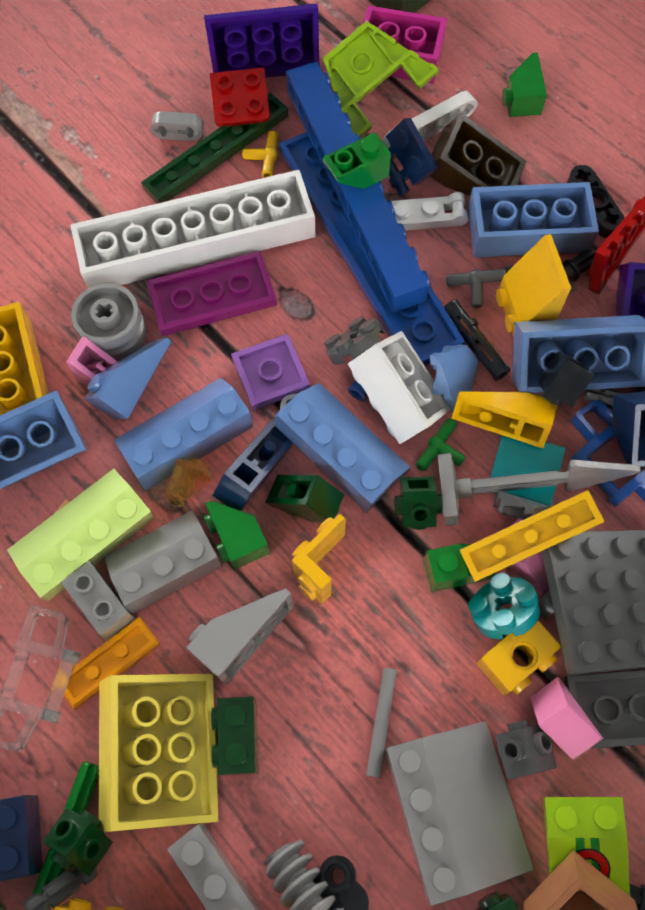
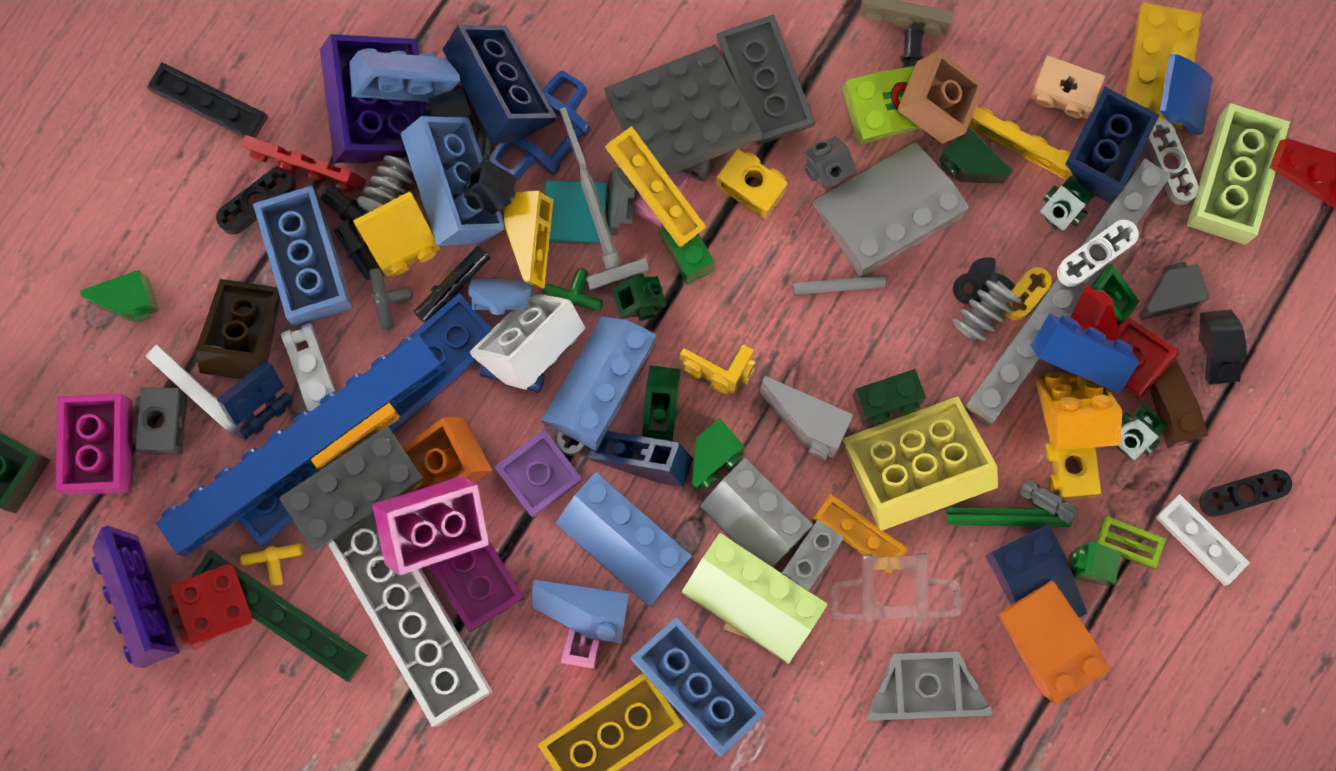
camera: 105 degrees left, 10 degrees up
(77, 841) = (1011, 496): dark green brick -> none
(110, 319) = (510, 646): light grey wheel -> none
(177, 126) = (259, 669): light grey beam -> none
(181, 482) = (677, 521): clear yellow bracket -> none
(240, 249) = (430, 524): none -> dark pink brick
(299, 204) = (347, 488): none -> dark grey plate
(305, 289) = (446, 453): none -> orange slope
(347, 223) = (380, 419): none -> light orange tile
(355, 341) = (493, 410): dark grey plate -> none
(360, 162) = (298, 432): green slope -> none
(364, 63) = (143, 471): lime wing -> none
(403, 99) = (168, 437): none -> dark grey brick
(502, 591) = (730, 196): teal plate -> none
(564, 719) = (794, 138): bright pink slope -> none
(585, 302) = (387, 184): none -> light grey piece

